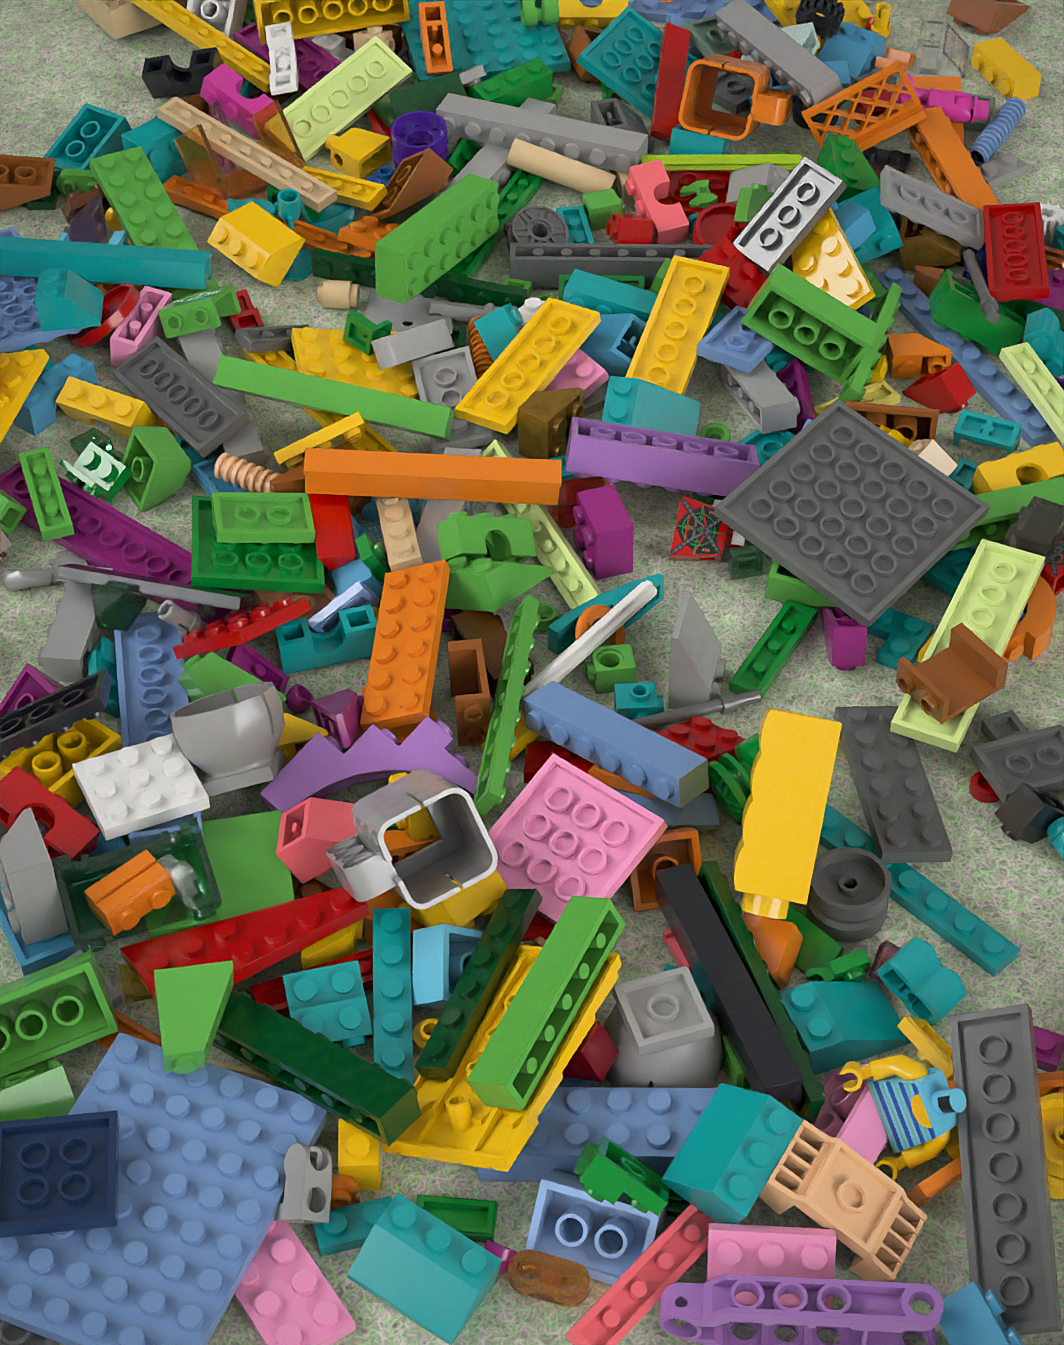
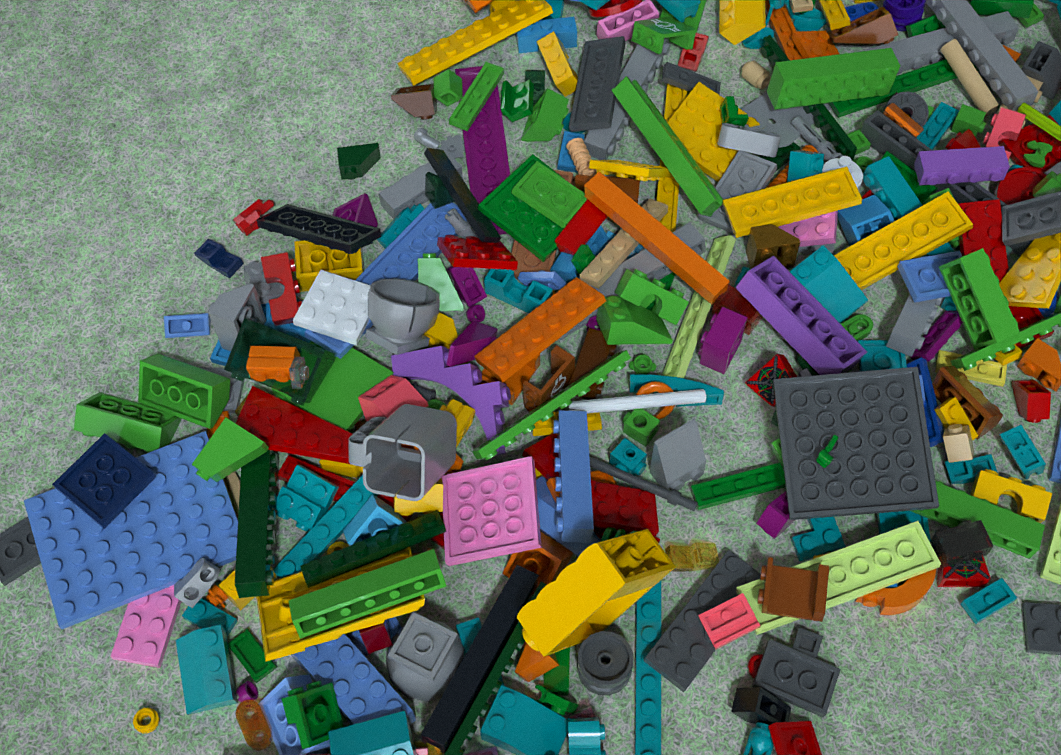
camera: 45 degrees right, 15 degrees up
(534, 235) = (903, 120): none -> orange slope
(653, 234) = (961, 165): none -> medium lavender brick
(843, 538) = (824, 457): none -> green hand
(922, 753) = (729, 621): none -> coral plate

